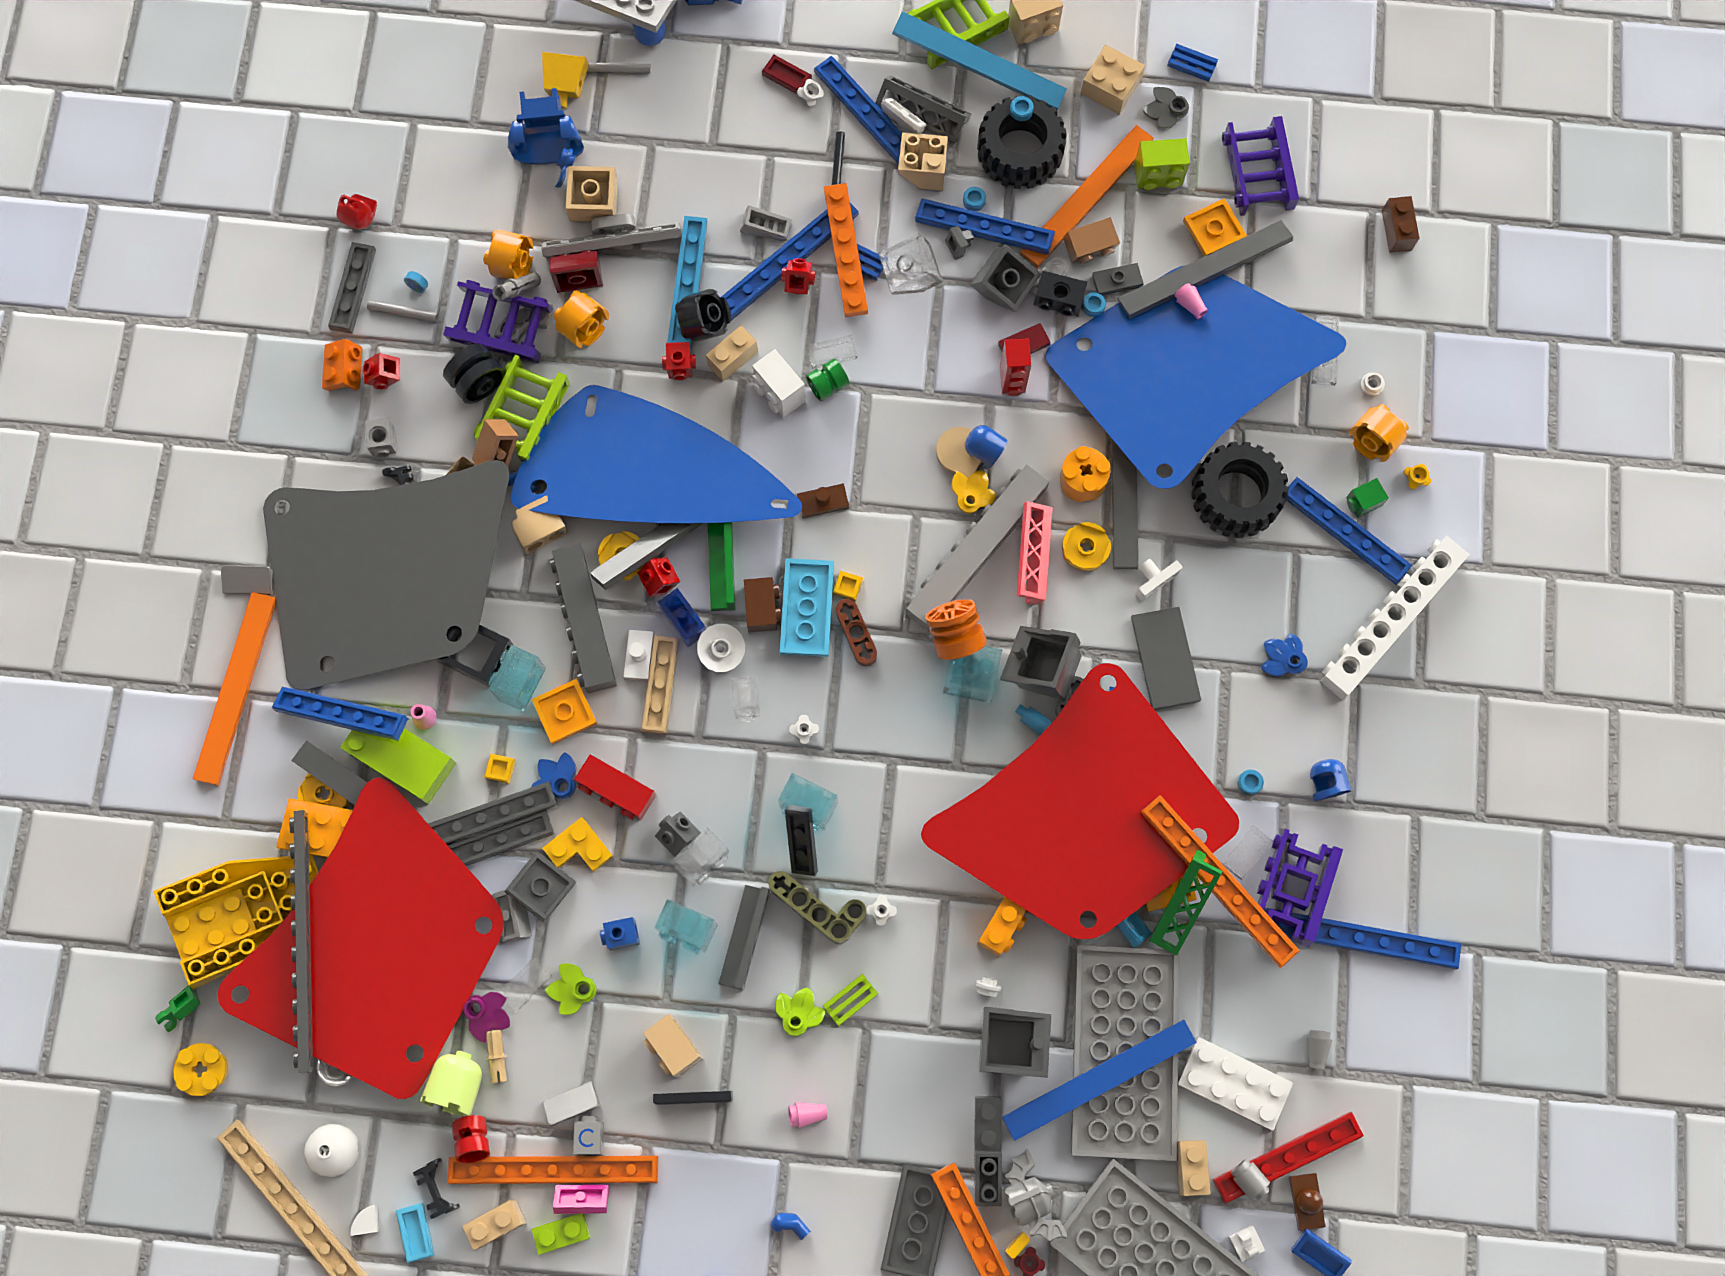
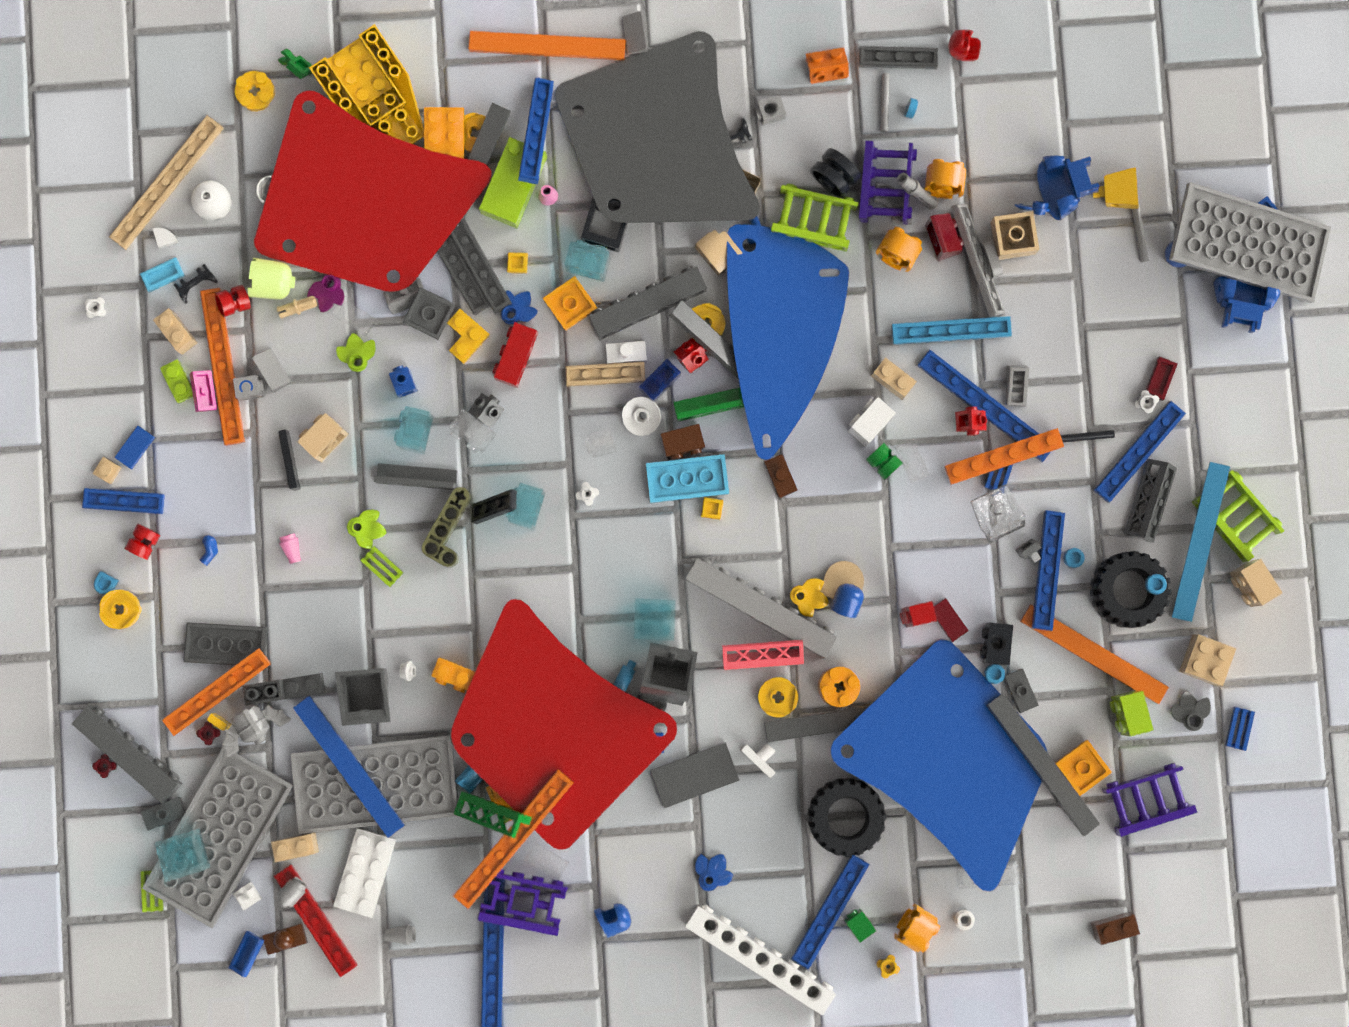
camera: 80 degrees right, 10 degrees up
(302, 951) = (362, 141): dark grey plate -> none
(381, 371) = (826, 98): red brick -> none
(495, 442) = (776, 203): medium nougat brick -> none
(678, 361) = (883, 331): red brick -> none
(703, 315) = (919, 348): black brick -> none
(857, 651) = (689, 518): copper beam -> none
(881, 917) = (454, 584): white plate -> none
(903, 116) = (1138, 485): white slope -> none
(923, 160) = (1098, 508): tan slope -> none
(956, 629) = (683, 600): orange wheel -> none
(1005, 278) = (1001, 595): dark grey slope -> none
(1055, 265) = (1021, 636): clear plate -> none
(1091, 241) = (1049, 662): medium nougat brick -> none
(1190, 299) = (1008, 755): bright pink cone -> none
(1250, 782) = (603, 856): dark azure tile -> none

